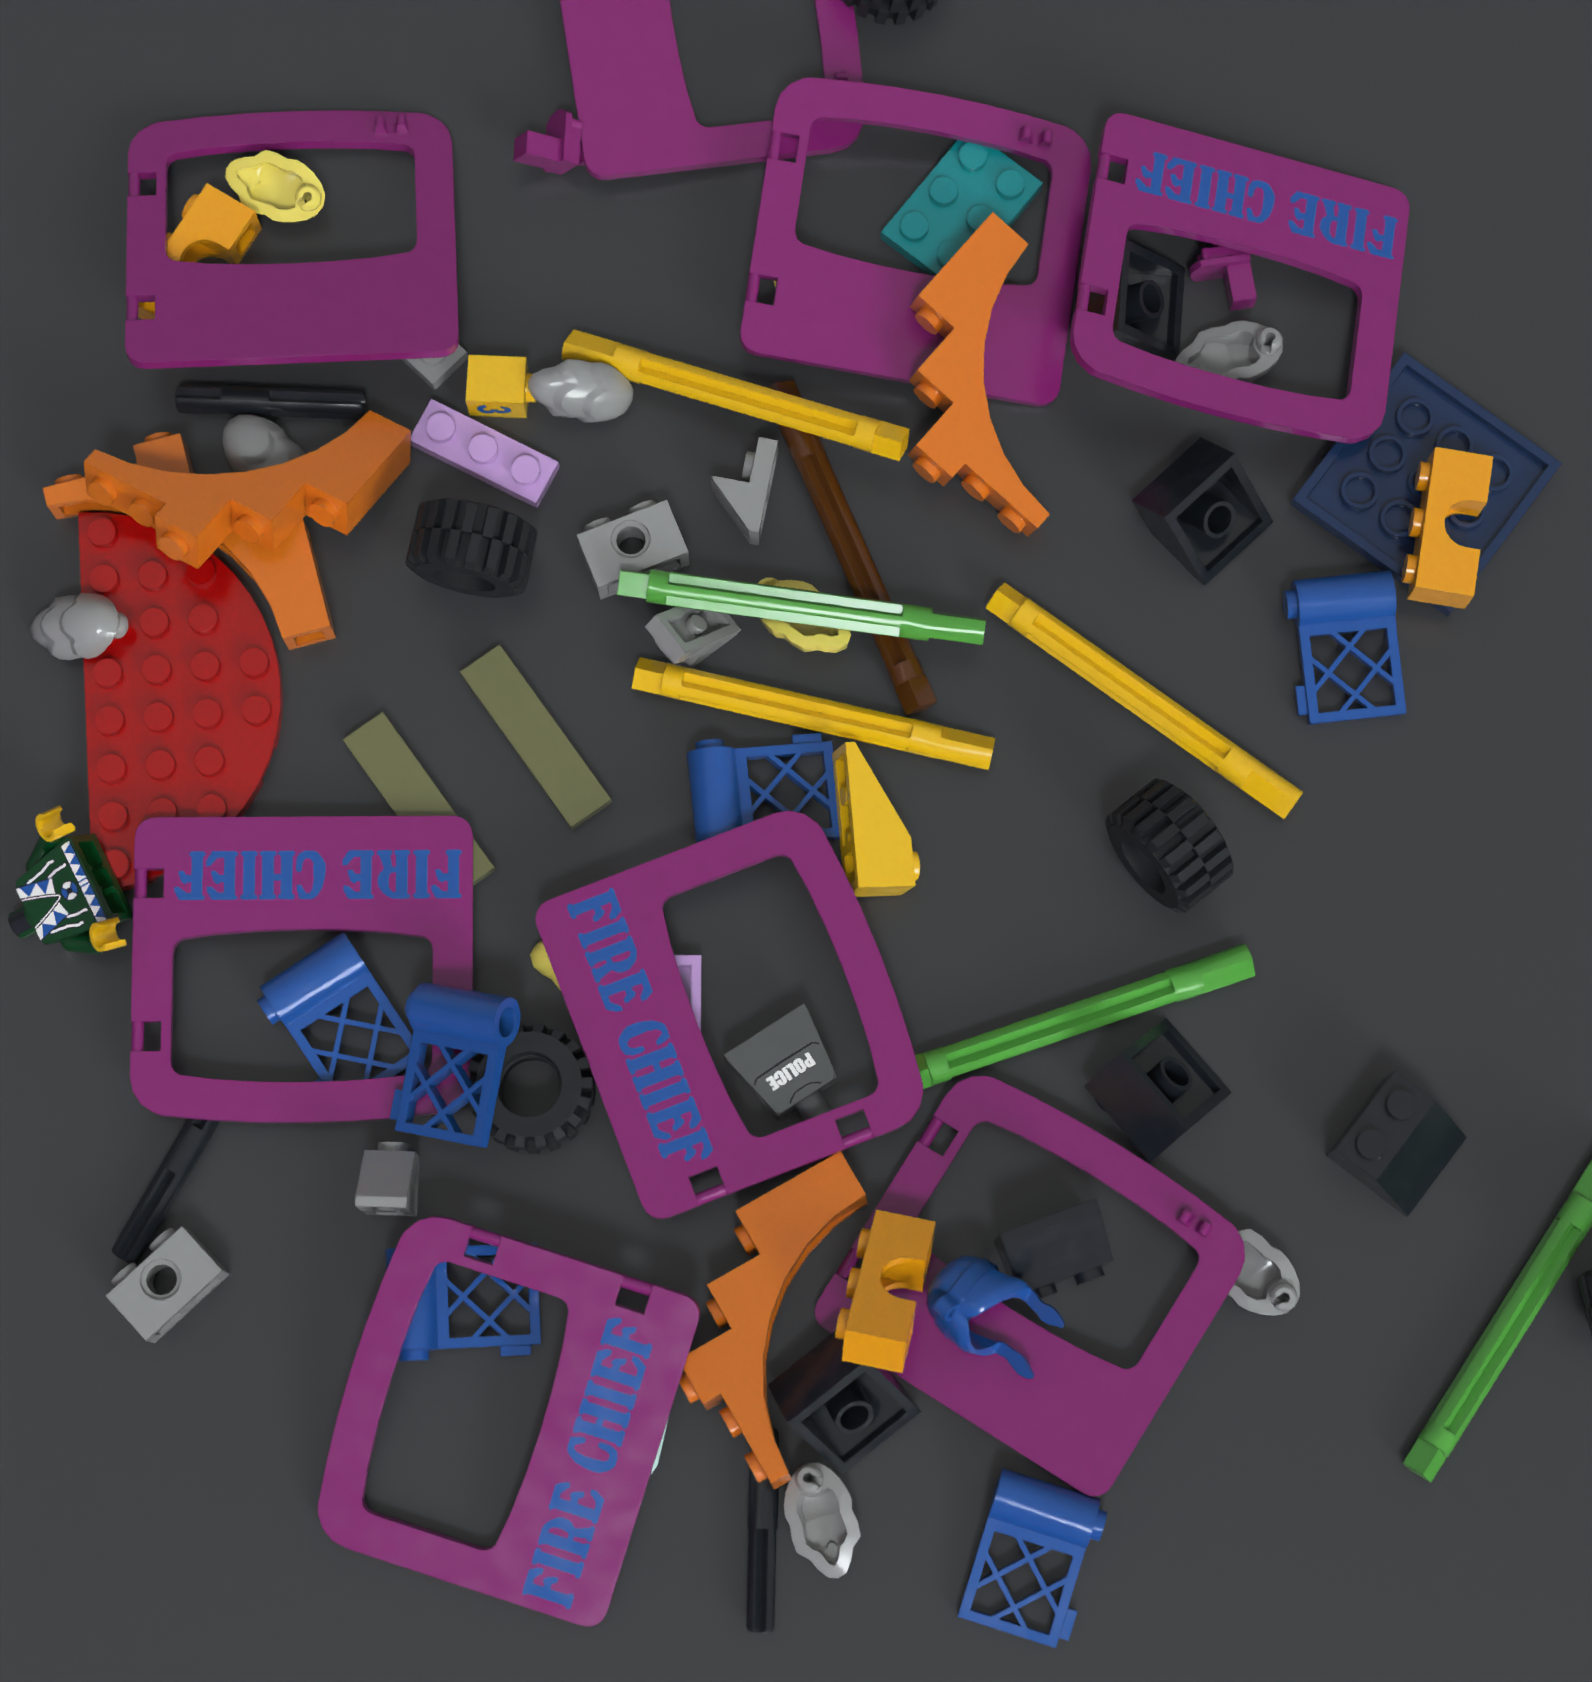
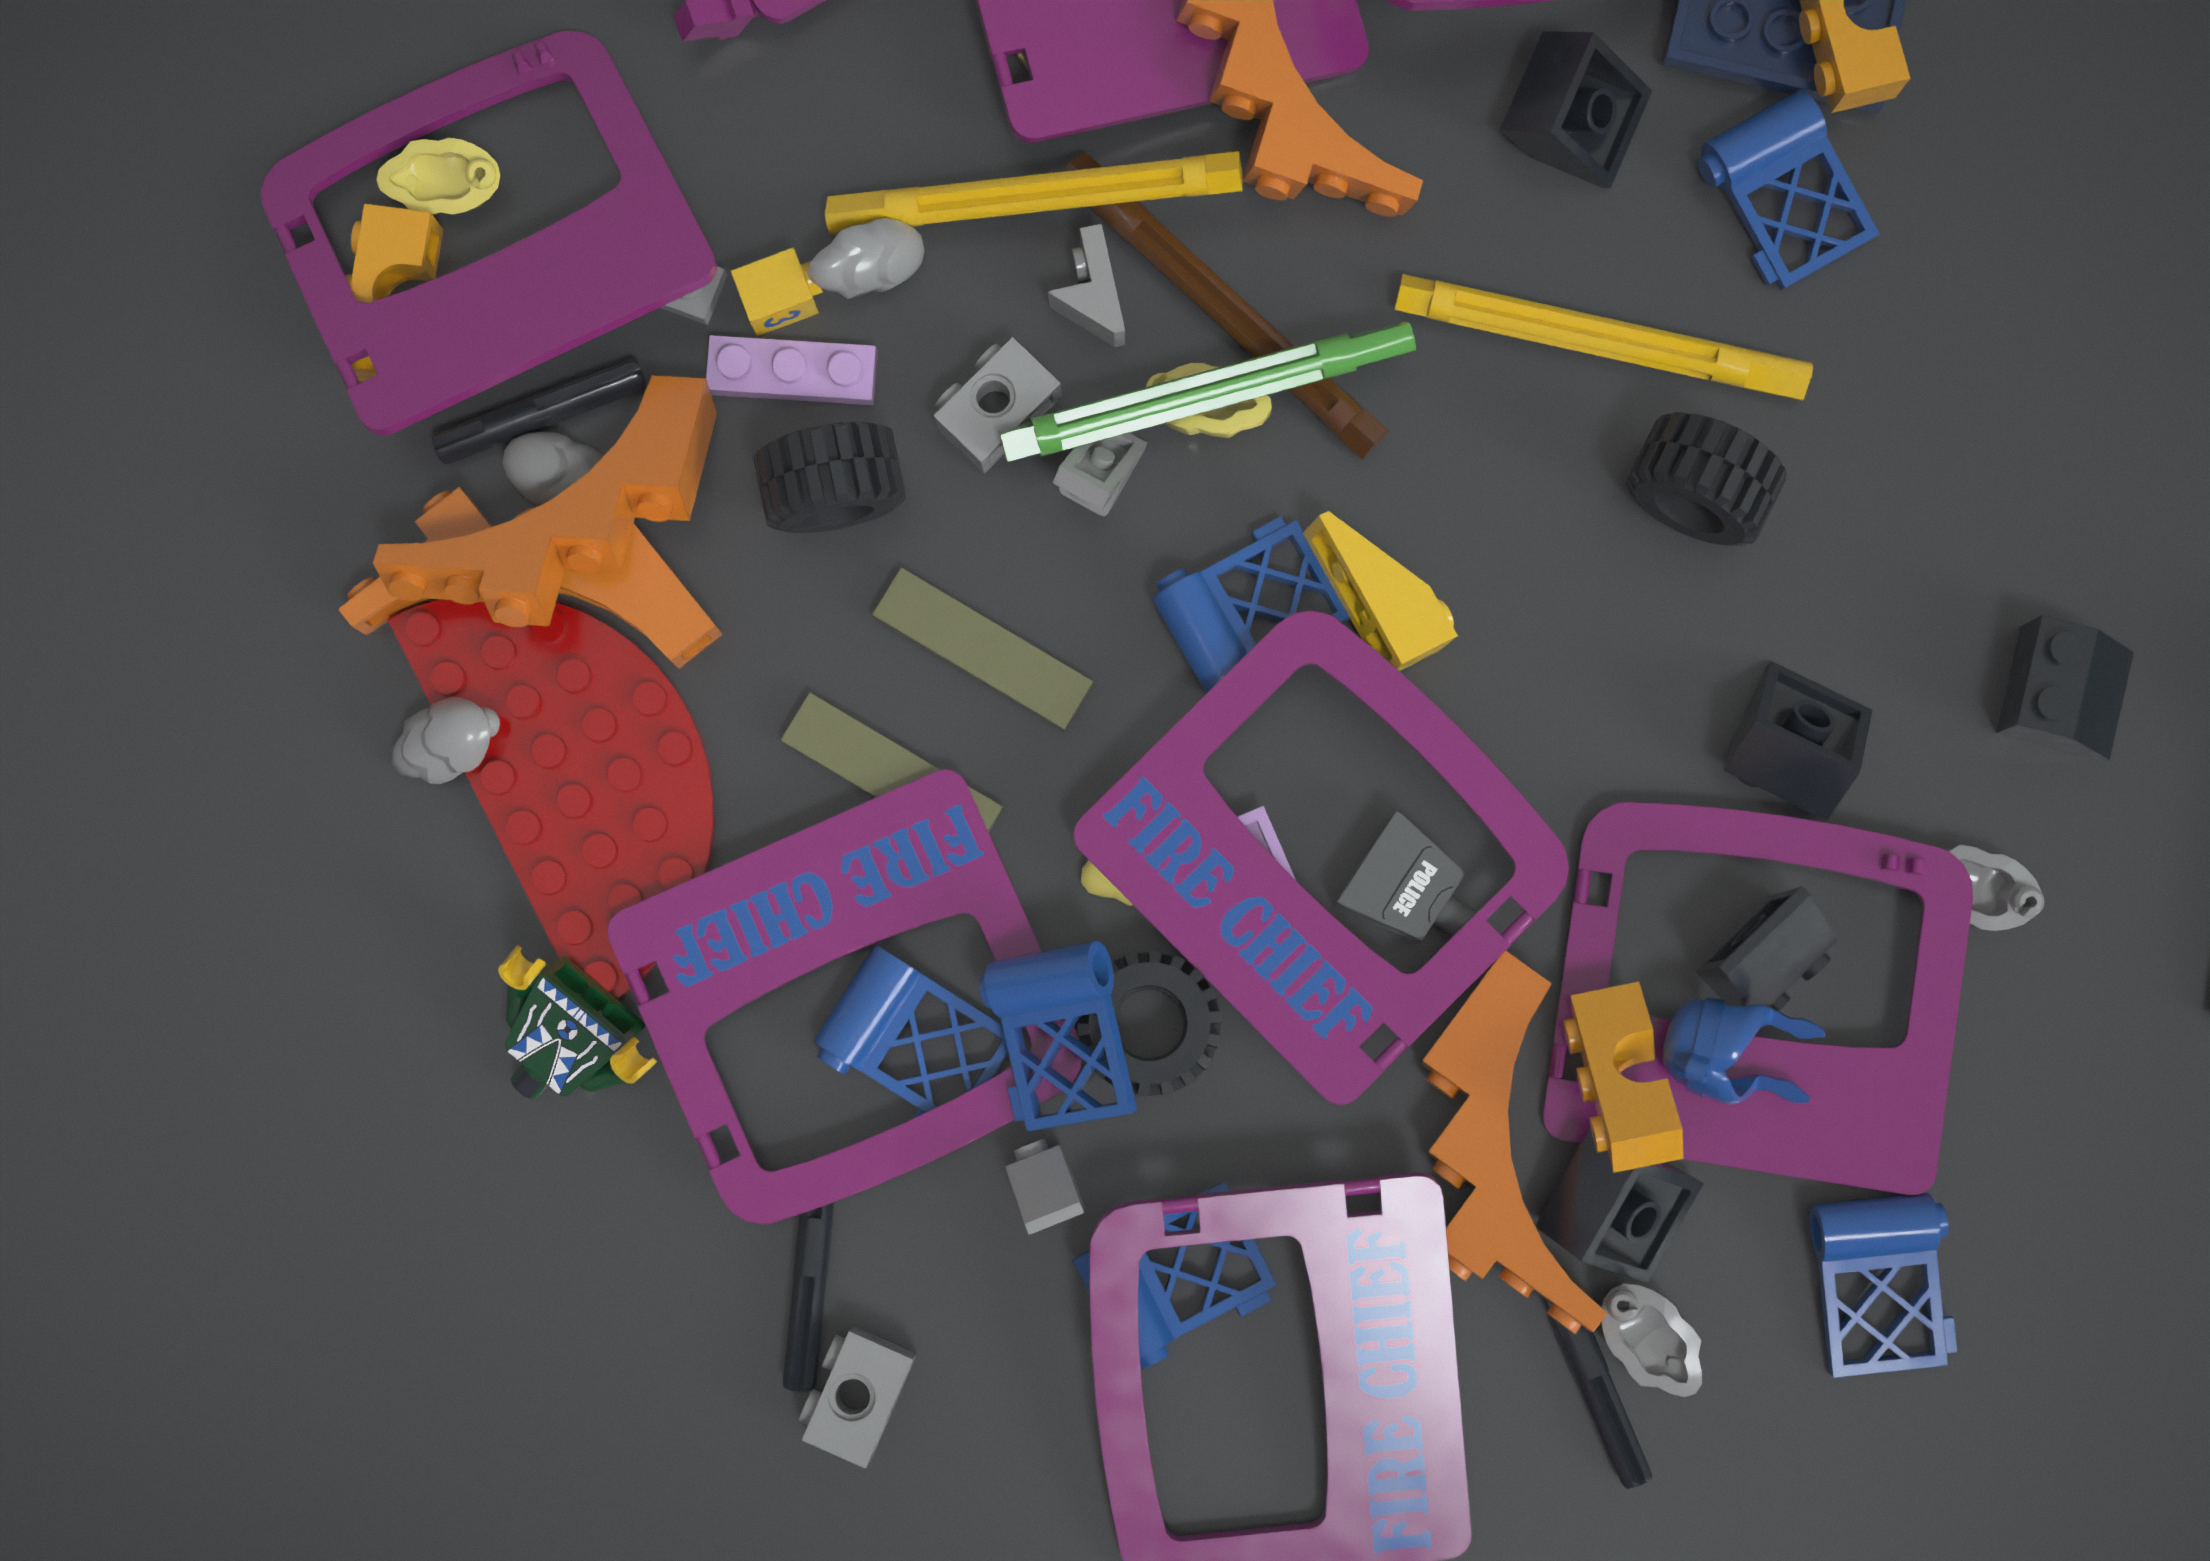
camera: 20 degrees left, 5 degrees up
(813, 713) = (1265, 498): yellow piece -> none
(1087, 1014) = (1692, 692): bright green piece -> none

